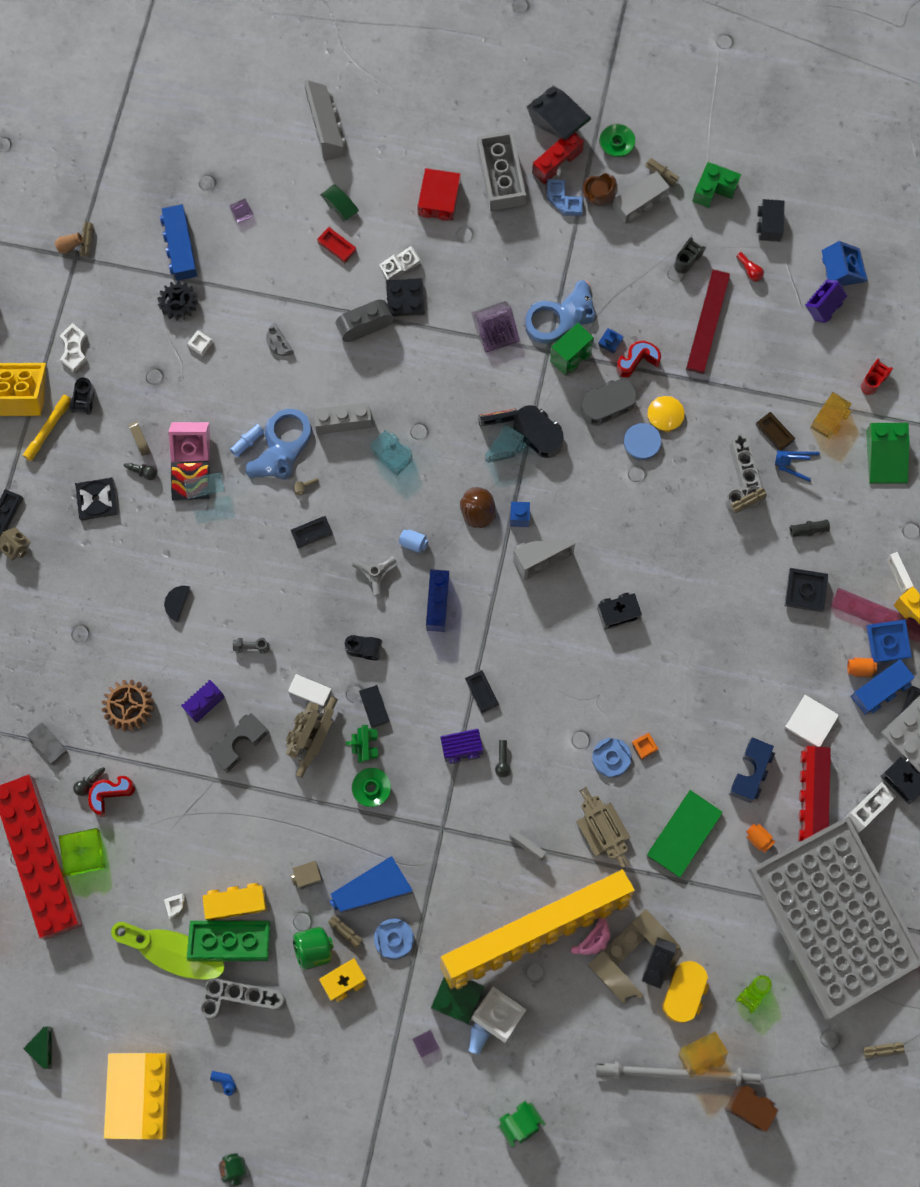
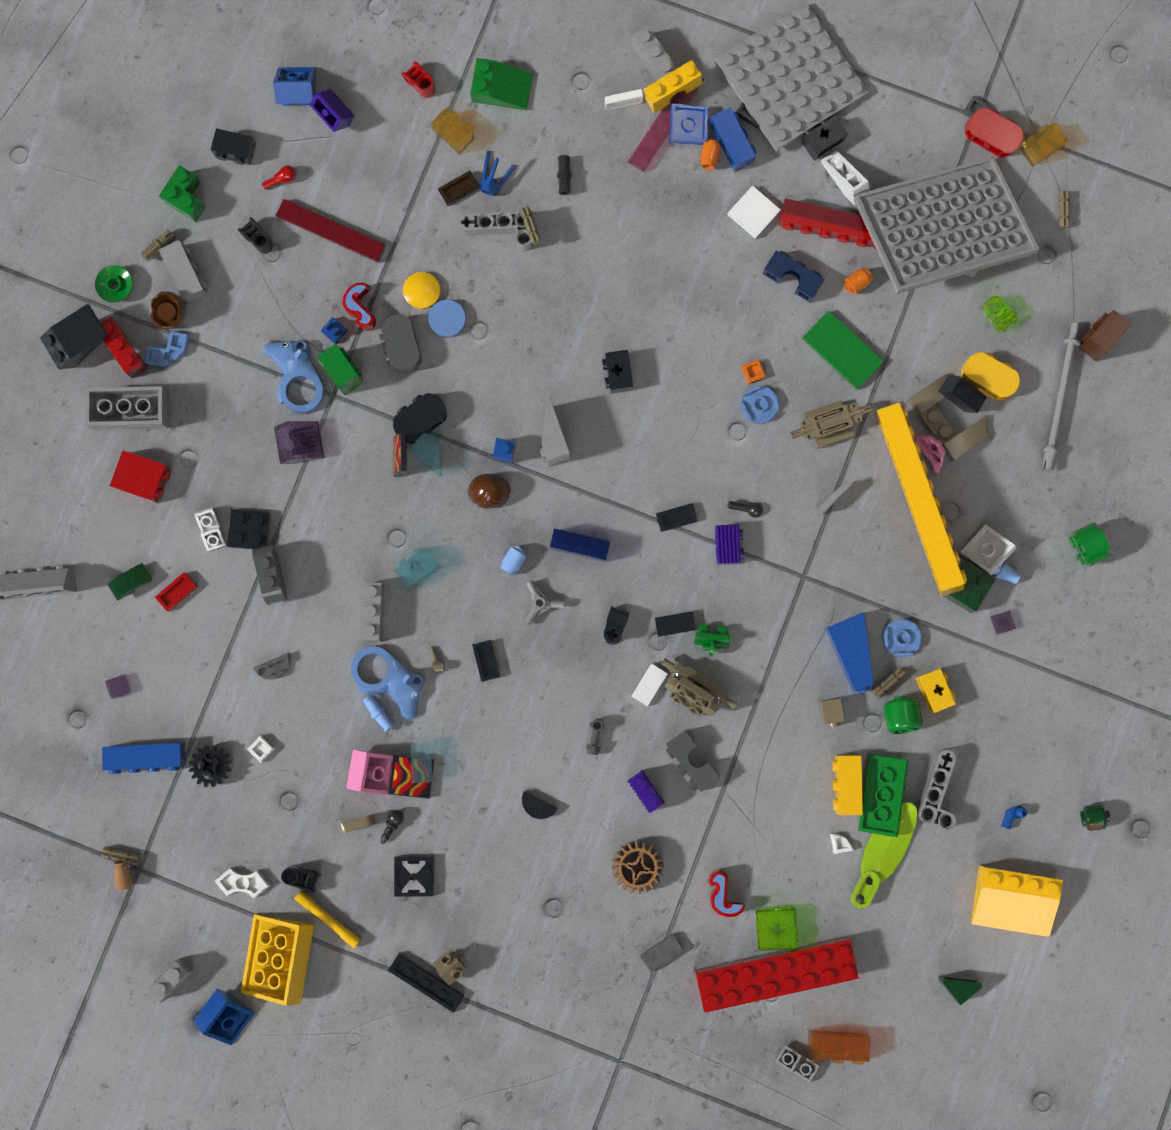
camera: 80 degrees left, 10 degrees up
(82, 787) = (713, 923): pearl dark grey bar -> none
(370, 777) = (763, 631): green dish -> none
(703, 1055) = (1050, 369): clear yellow brick -> none
(806, 590) = (625, 190): black plate -> none

